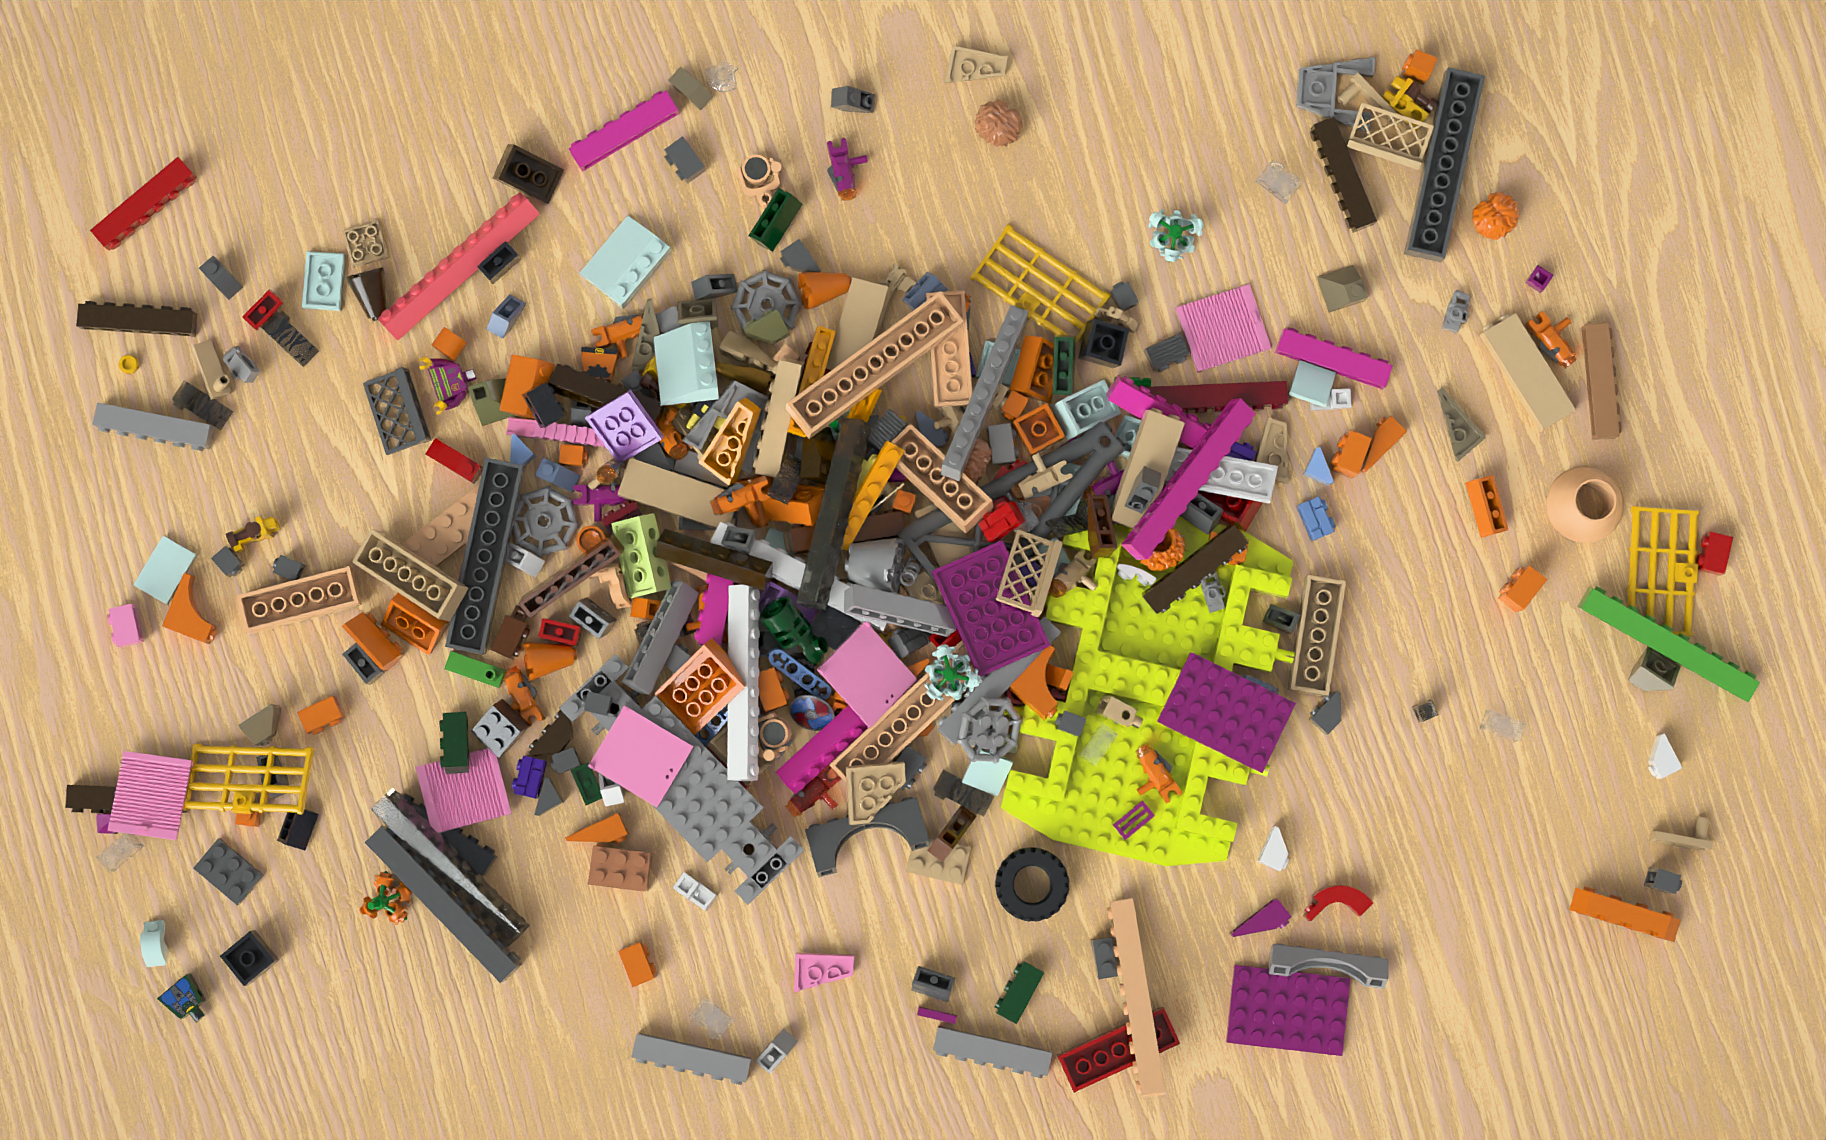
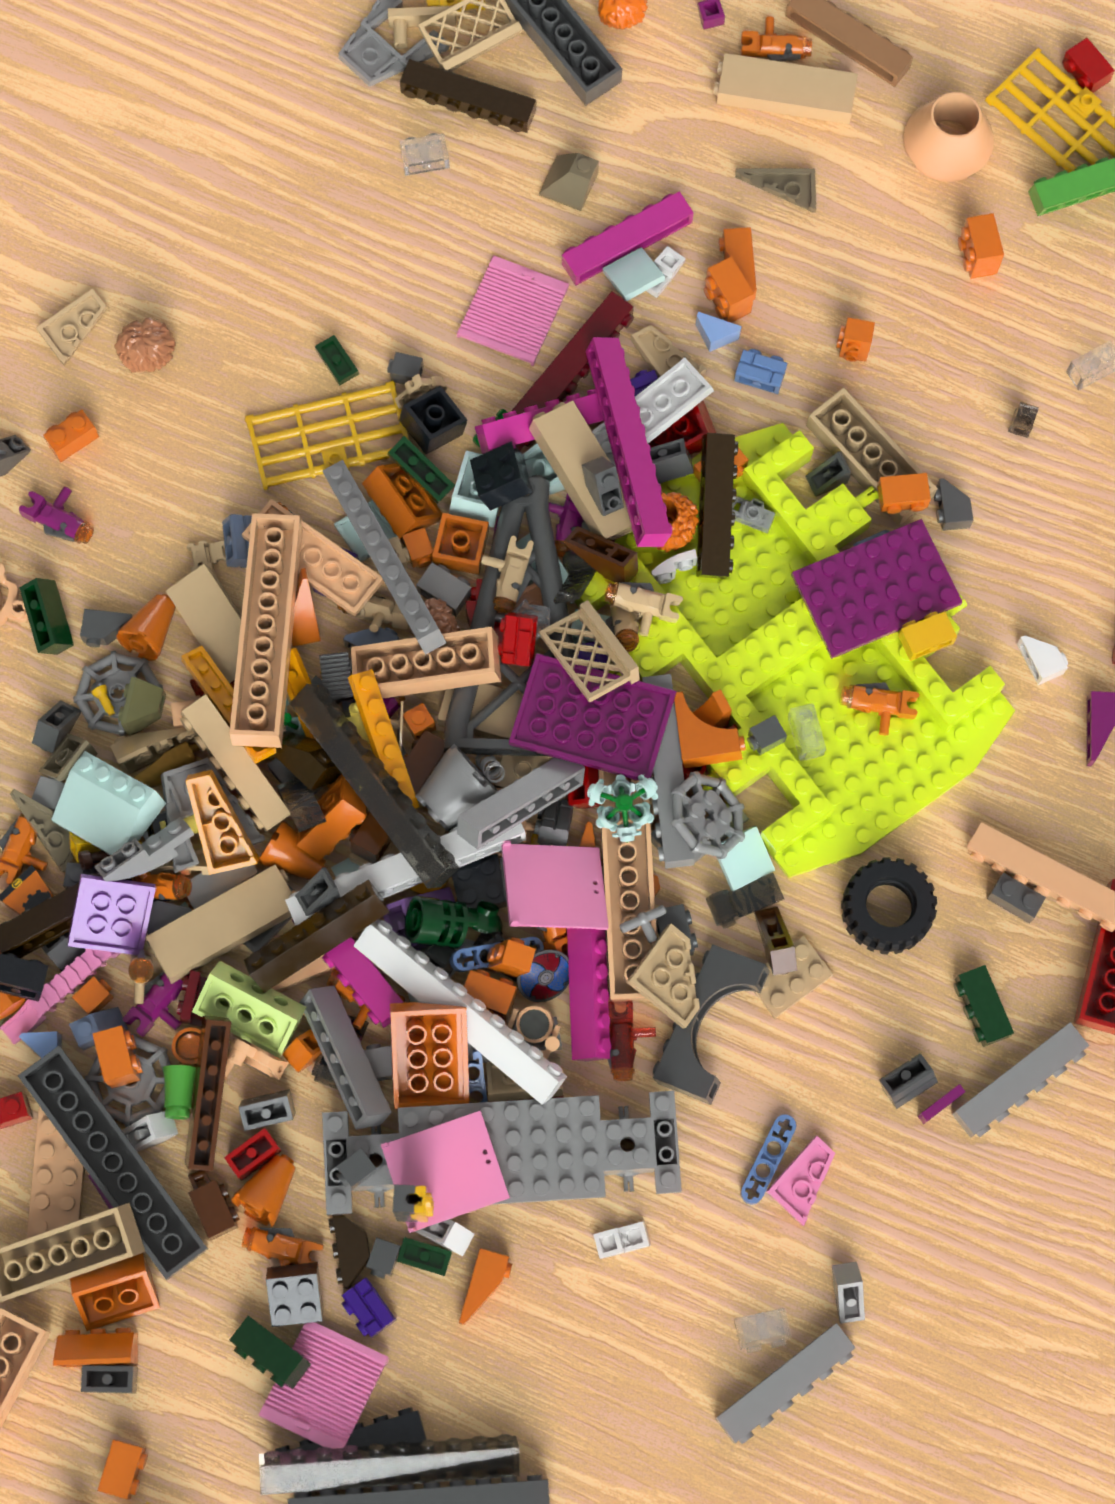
camera: 45 degrees left, 10 degrees down
(474, 669) = (214, 1273): bright green piece -> none
(547, 504) = (117, 1056): none -> orange brick
(548, 798) = (406, 1307): dark grey slope -> none
(558, 556) = (178, 1090): none -> bright green plant
(593, 753) = (403, 1203): none -> piece
(620, 868) = (536, 1294): nougat brick -> none
(637, 964) = (646, 1358): orange brick -> none
(673, 416) = (139, 858): none -> light grey slope
(739, 496) = (278, 860): orange piece -> none
(756, 294) = (99, 691): none -> yellow piece
(801, 685) = (511, 957): none -> orange brick
(817, 942) = (771, 1161): none -> medium blue beam
(892, 745) = (643, 919): none -> light grey piece
(901, 129) = (70, 435): none -> orange brick
(907, 378) = (305, 622): none -> orange slope
(1092, 576) = (643, 599): none -> tan piece
(1093, 248) = (336, 360): none -> dark green plate
(1098, 419) = (501, 475): none -> black brick
(1112, 709) = (790, 687): tan torso -> none
(1133, 830) = (896, 760): magenta tile -> none
(1167, 352) = (491, 374): dark grey brick -> none
(1174, 224) = (386, 272): light aqua plant -> none
(1221, 769) = (927, 635): none -> yellow brick
(1303, 678) = (903, 493): none -> orange brick
(1386, 561) = (855, 339): none -> orange brick
(1455, 312) = (679, 105): light grey piece -> none
(1486, 506) = (879, 216): orange brick -> none

